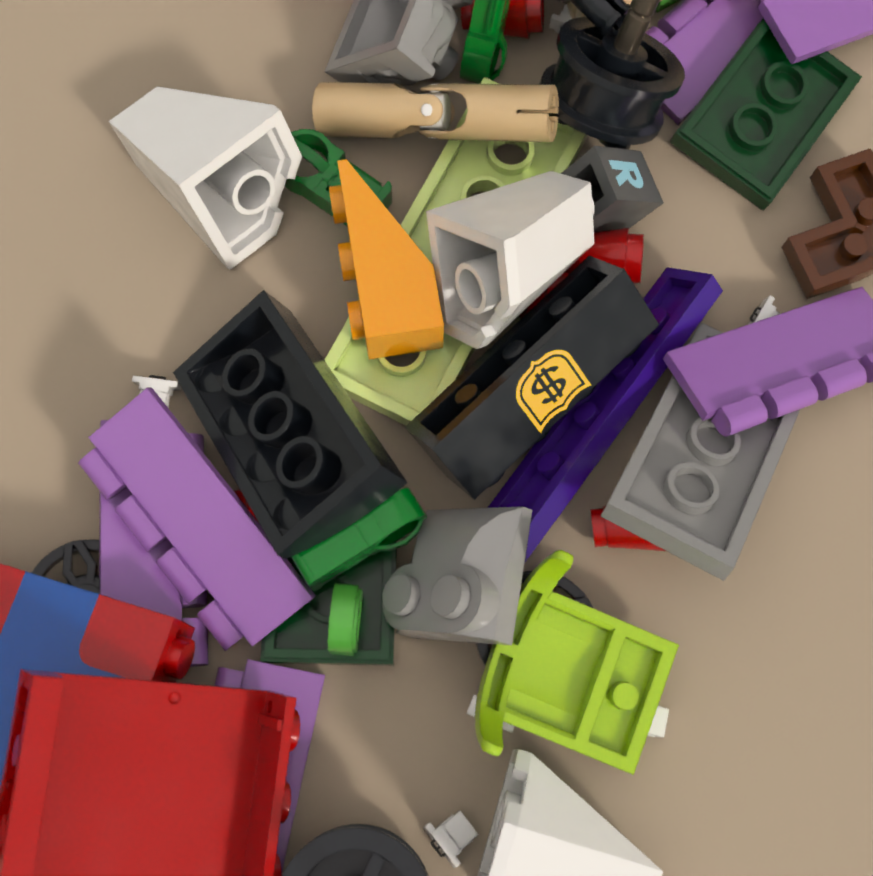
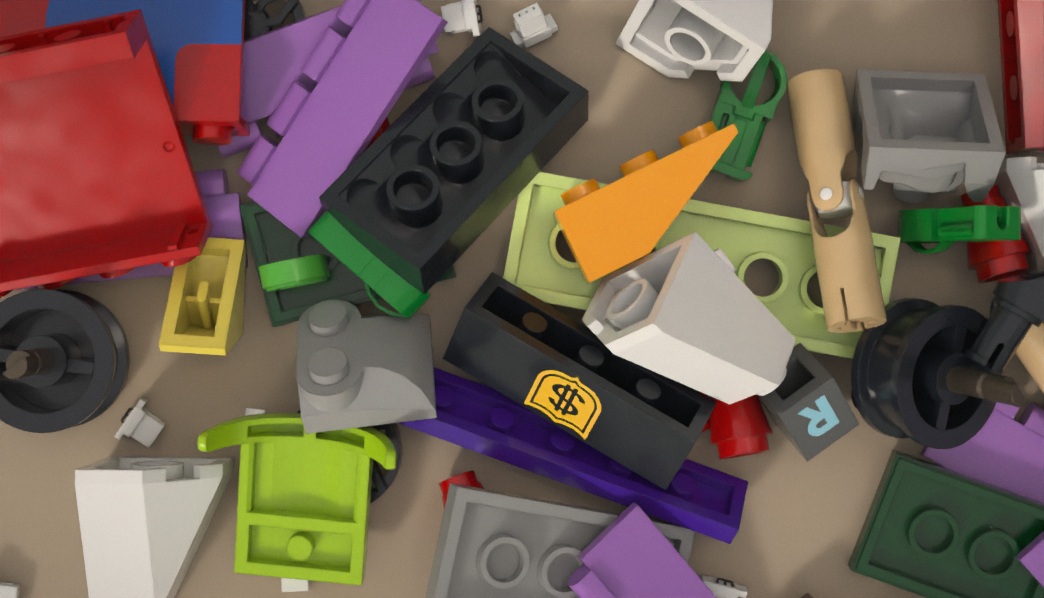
camera: 75 degrees right, 15 degrees up
(186, 333) = (532, 26): none -> white piece
(345, 717) = (207, 301): none -> light yellow slope

